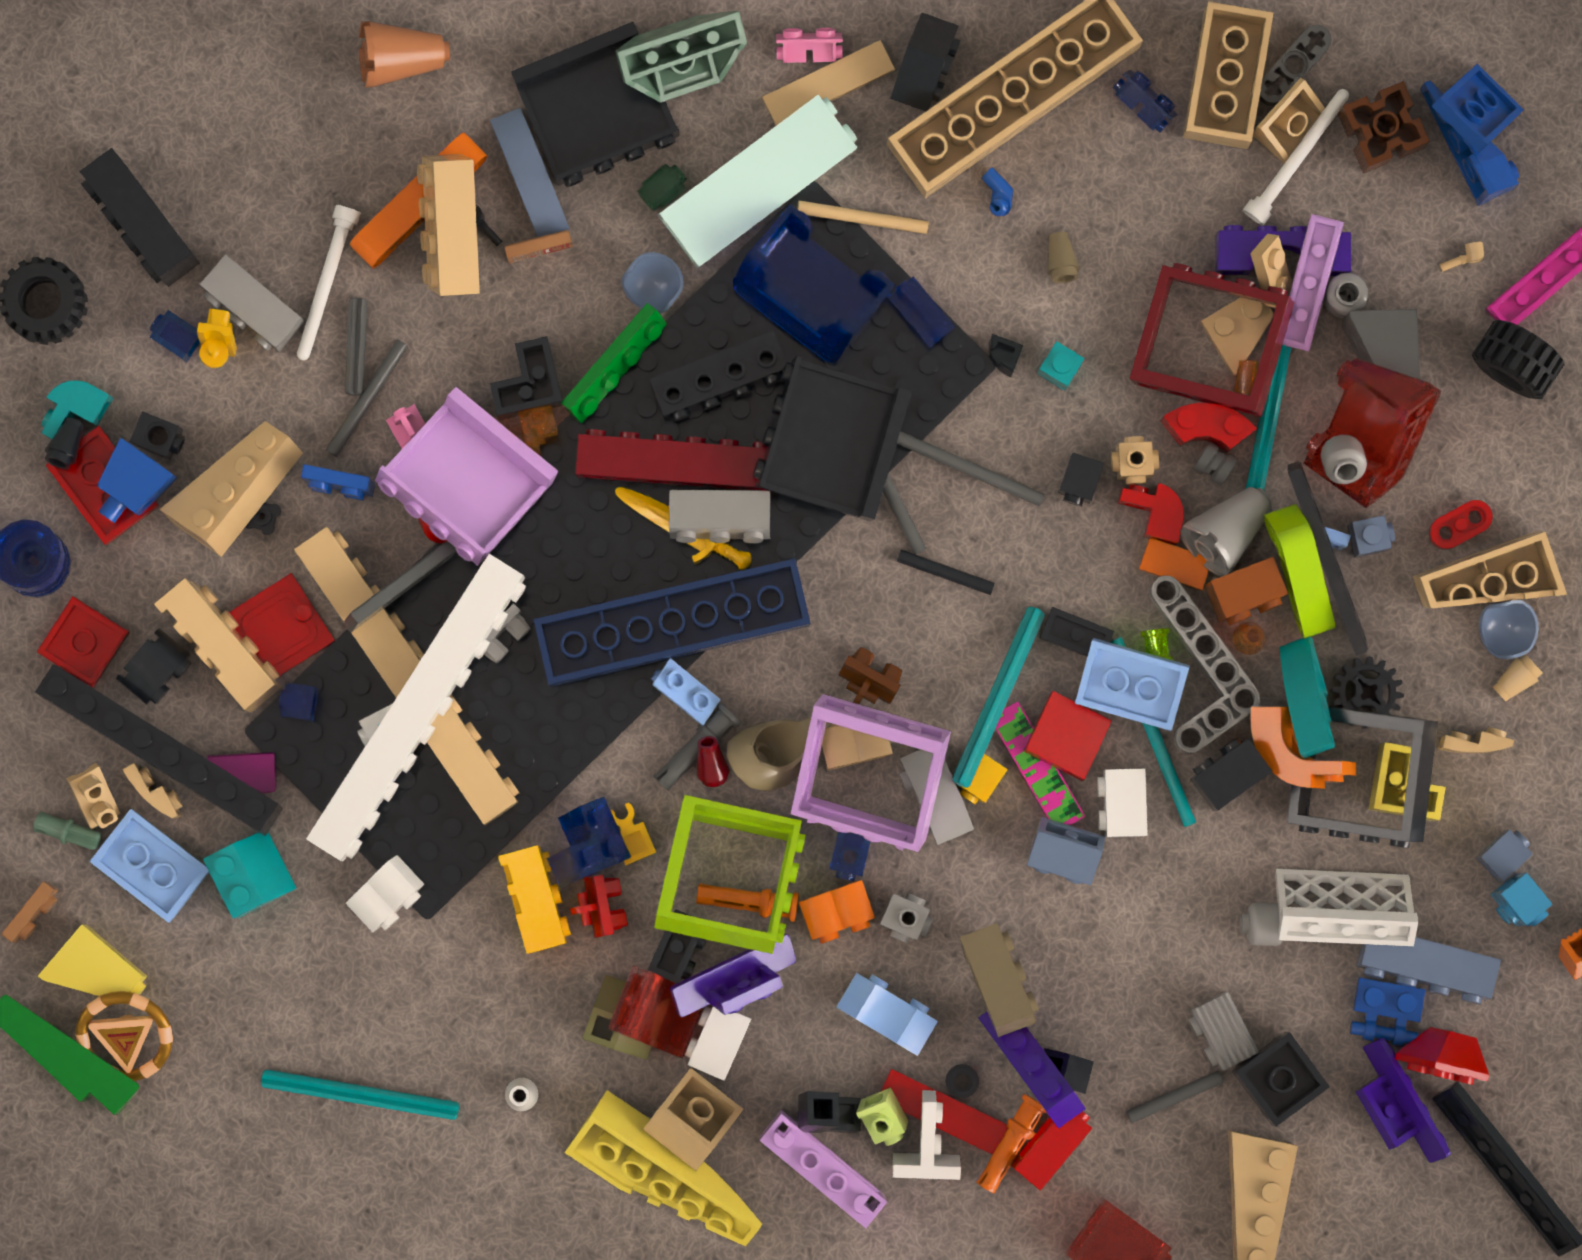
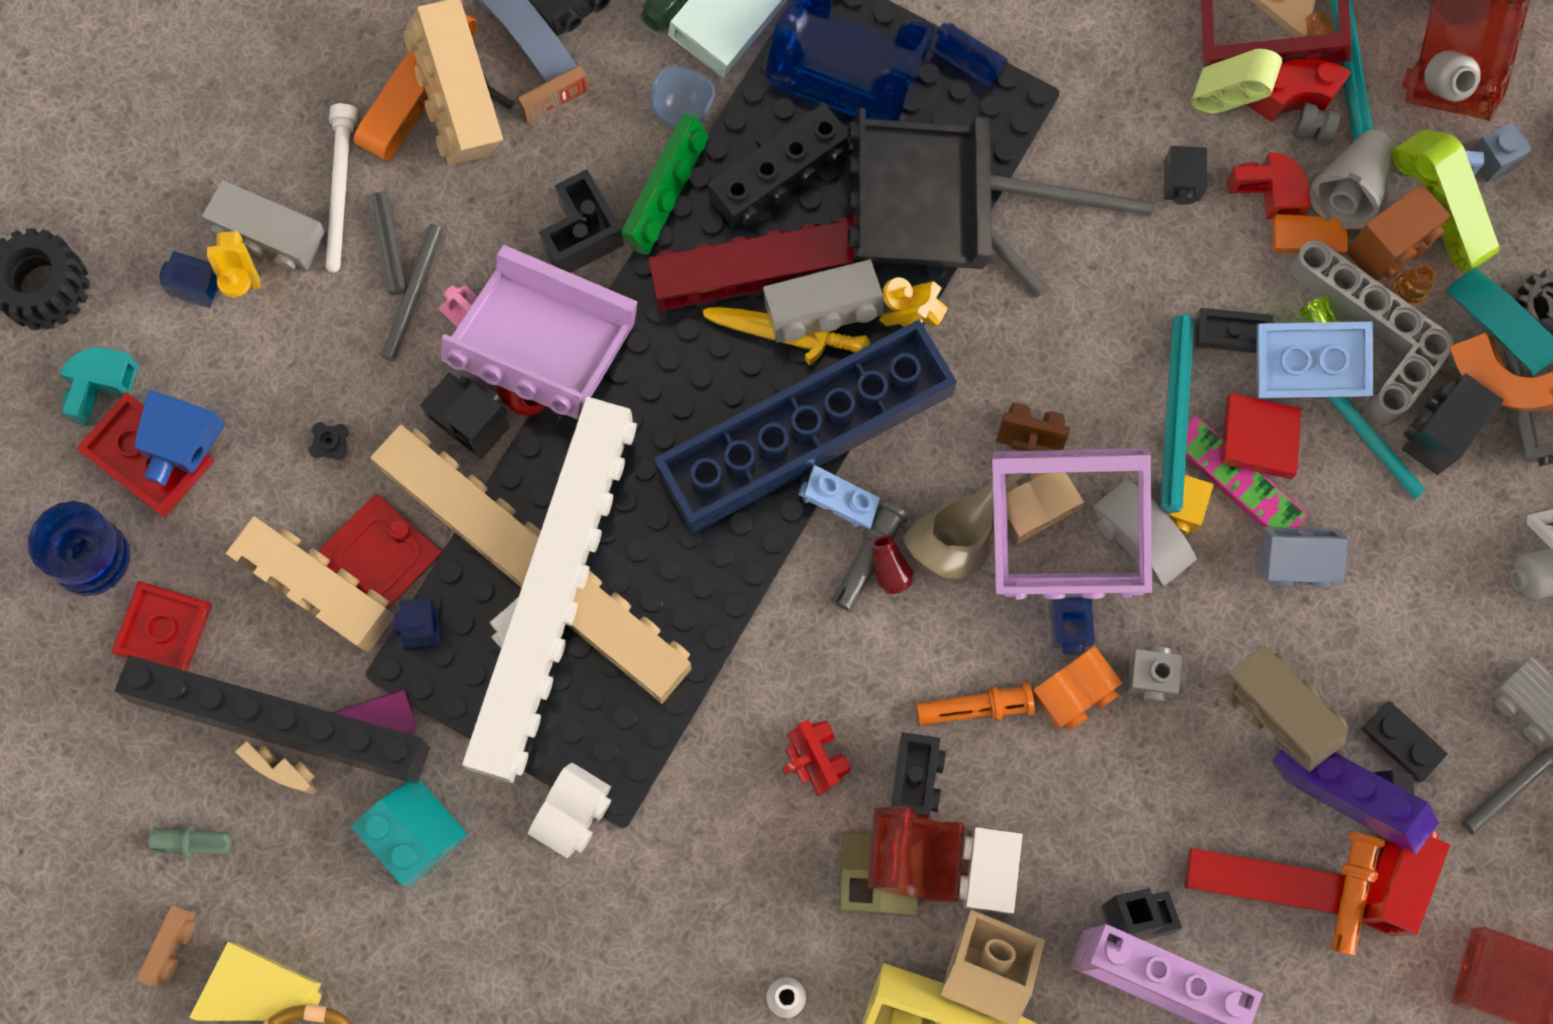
camera: 15 degrees left, 10 degrees down
(65, 444) = (91, 418): black cone -> none
(94, 797) = (209, 792): tan hips -> none
(144, 224) = (119, 166): black brick -> none
(147, 426) = (183, 375): black brick -> none
(150, 865) = (294, 854): light blue plate -> none
(154, 667) = (245, 630): black brick -> none
(233, 488) = (288, 417): tan wedge -> none
(324, 480) = (400, 376): blue plate -> none
(384, 527) = (467, 413): none -> black brick
(399, 586) = (497, 464): dark grey tile -> none
(515, 625) = (634, 476): light grey hips -> none
(535, 899) = (739, 767): yellow wedge -> none
(536, 426) = (600, 262): clear orange bracket -> none
(593, 843) = (787, 689): clear blue brick -> none
(635, 836) = (828, 675): yellow plate -> none
(734, 981) = (992, 794): dark purple bracket -> none
(742, 820) = (951, 619): lime window -> none
(795, 540) = (912, 303): none -> yellow hips
(886, 1013) = (1169, 787): light blue brick -> none
(886, 1108) = (1199, 893): yellowish green brick -> none
(930, 1161) = (1267, 941): white bracket -> none
(945, 572) = (1075, 306): black bar -> none
(973, 1081) = (1281, 831): black plate -> none
(1004, 354) = (1064, 76): black tile -> none
(1060, 366) = (1127, 69): teal brick -> none
(1101, 1031) = (1404, 741): none -> black plate
(1123, 803) = (1345, 488): white brick -> none
(1131, 472) = (1235, 140): tan brick -> none
(1148, 410) = (1237, 81): none -> yellowish green beam
(1328, 558) = (1501, 217): black tile -> none

